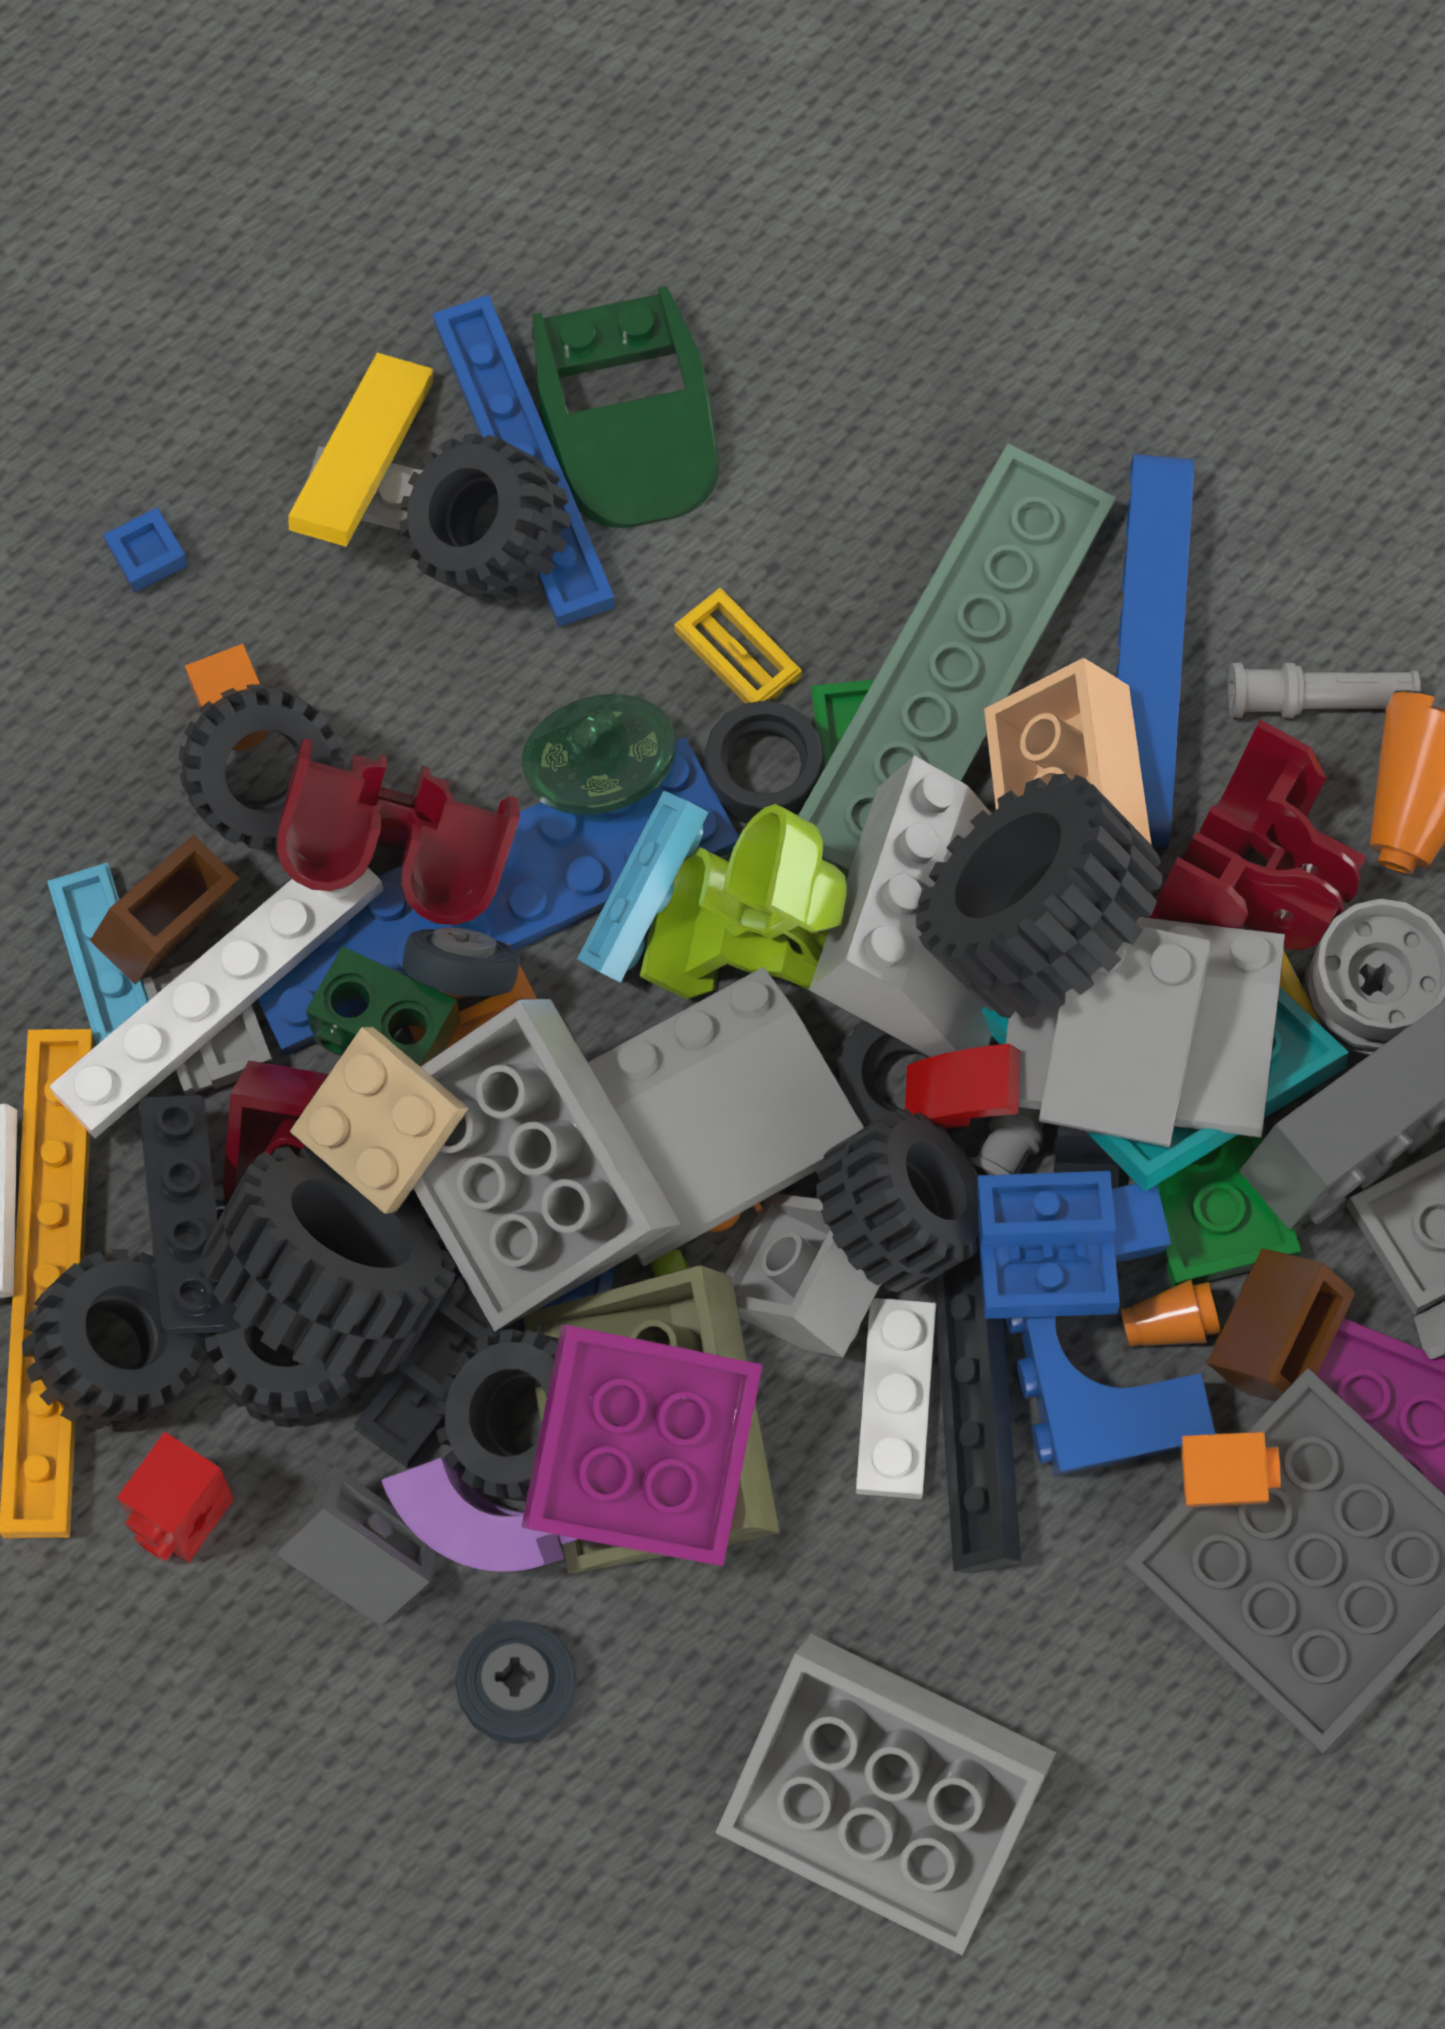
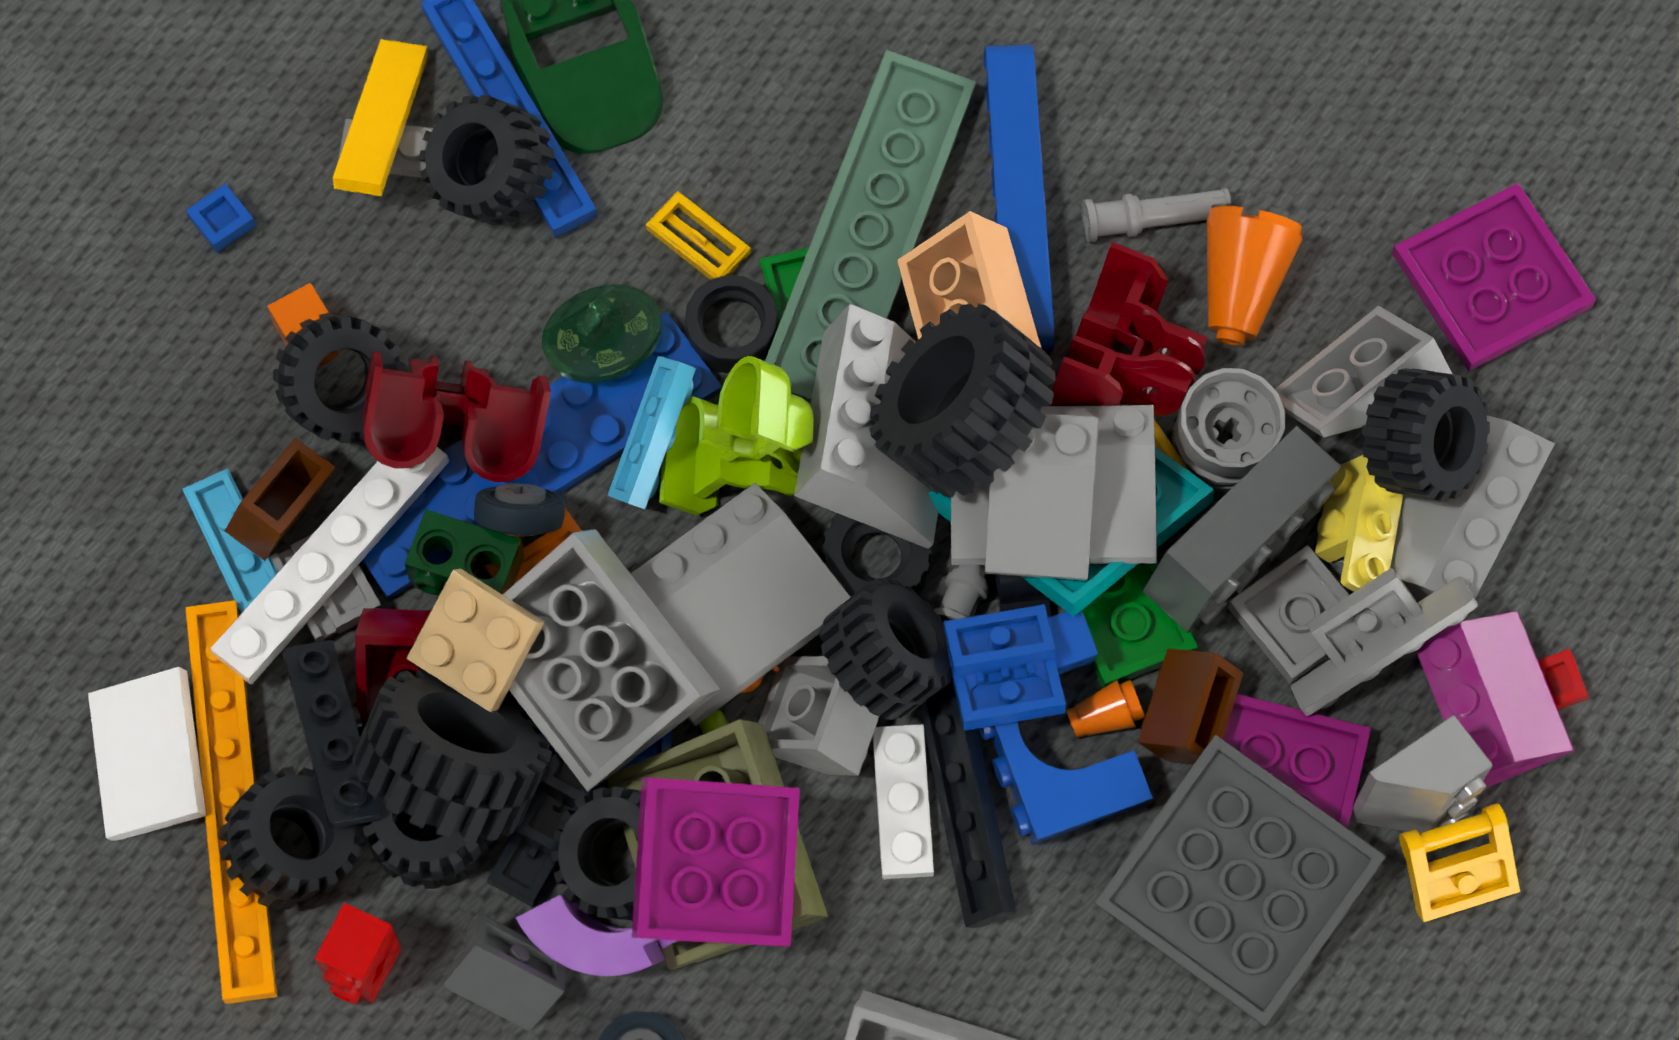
camera: 10 degrees left, 0 degrees up
(965, 1085) = (923, 553): red slope -> none
(1228, 1469) = (1165, 820): orange brick -> none

